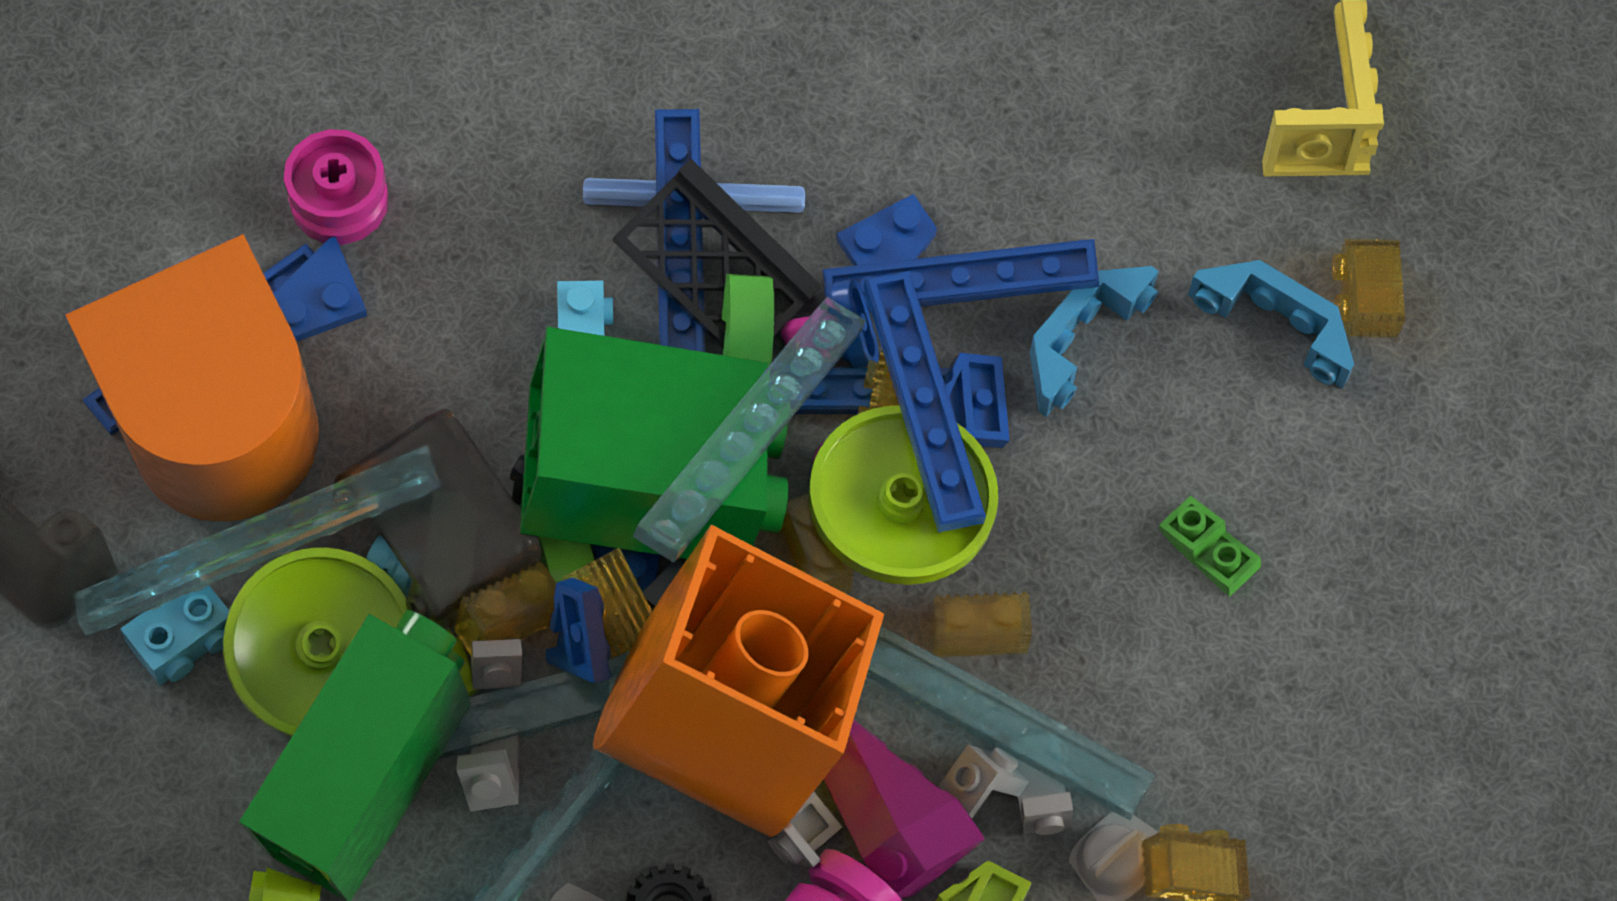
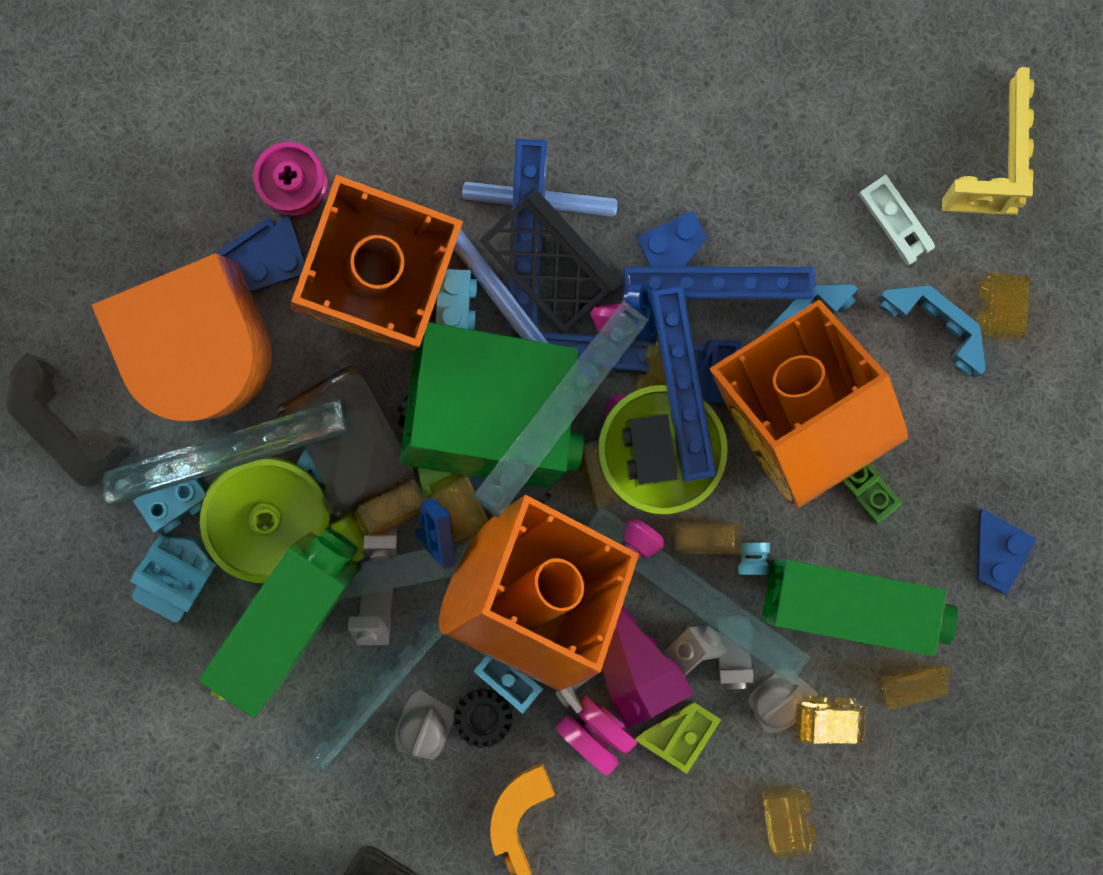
camera: 10 degrees right, 20 degrees up
(180, 740) = (172, 575): none -> medium azure piece
(464, 265) = (375, 265): none -> orange brick
(627, 296) = (496, 290): none -> light blue axle
(706, 841) = (509, 683): none -> medium azure brick
(749, 317) = (569, 309): bright green slope -> none
(886, 485) = (650, 450): none -> black brick
(898, 624) = (642, 539): none -> dark pink cone
(1054, 650) = (754, 566): none -> medium azure wheel
(1110, 410) = (810, 404): none -> orange brick
(1201, 187) = (896, 219): none -> light aqua plate
(1212, 679) = (858, 607): none -> green brick
(1316, 810) = (916, 686): none -> clear yellow bracket
(1414, 618) = (1001, 551): none -> blue wing

